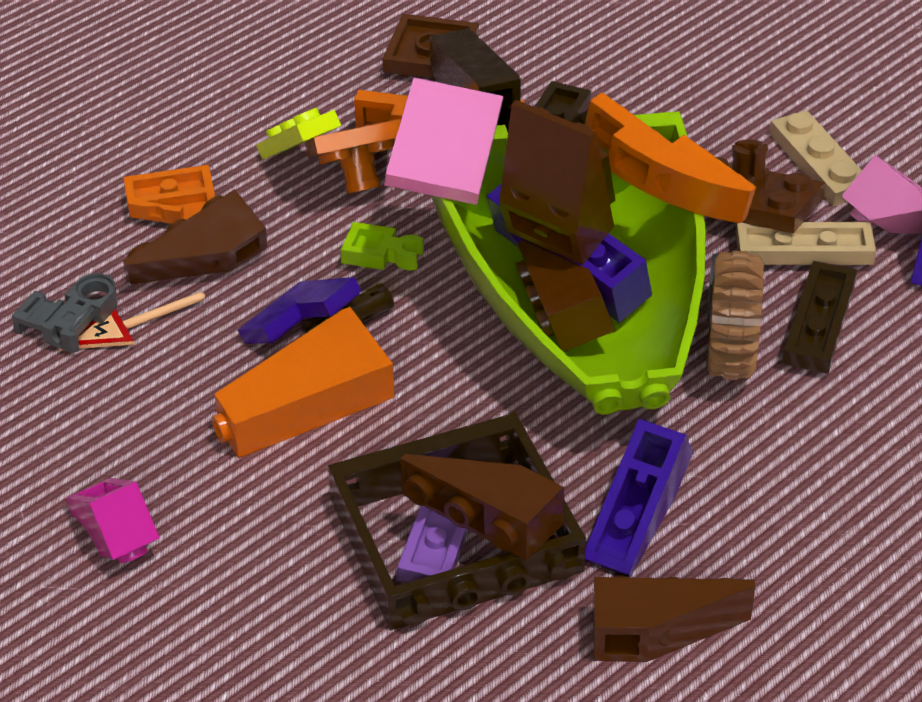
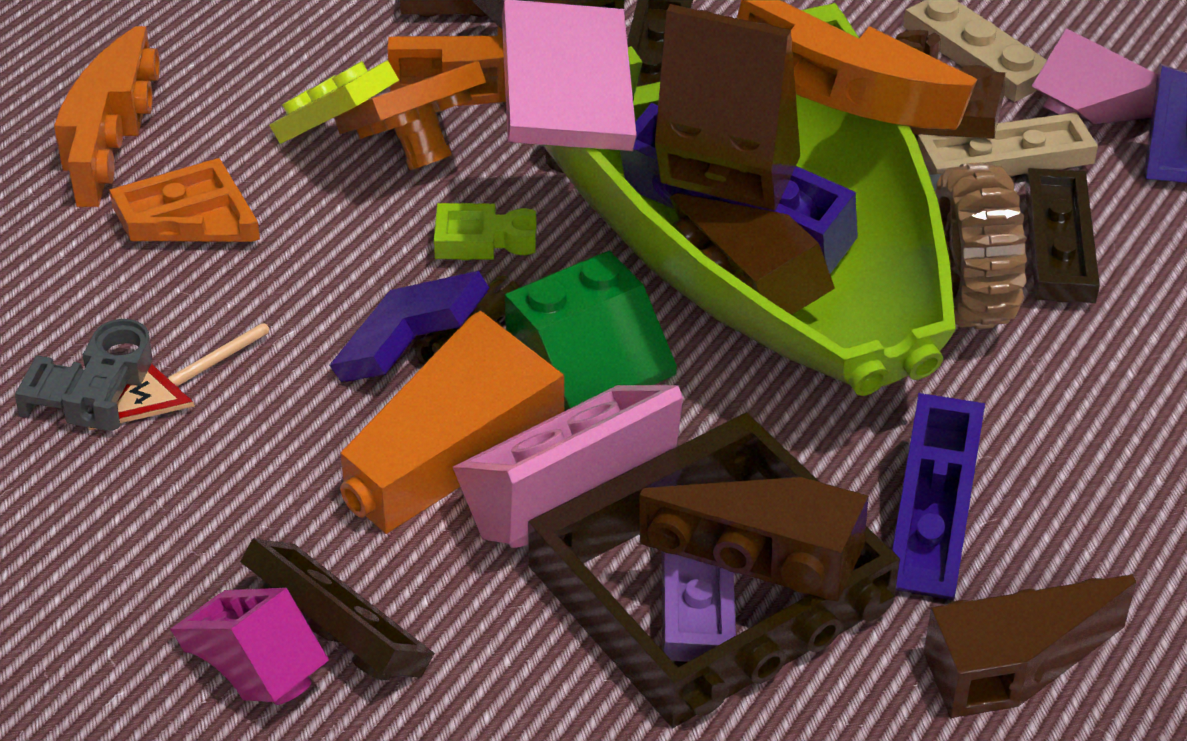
camera: 15 degrees left, 0 degrees up
(139, 113) = (102, 109): none -> orange slope
(180, 504) = (338, 611): none -> dark brown plate
(206, 243) = (253, 259): reddish brown slope -> none
(373, 423) = (567, 457): none -> bright pink slope
(429, 337) = (592, 327): none -> green slope

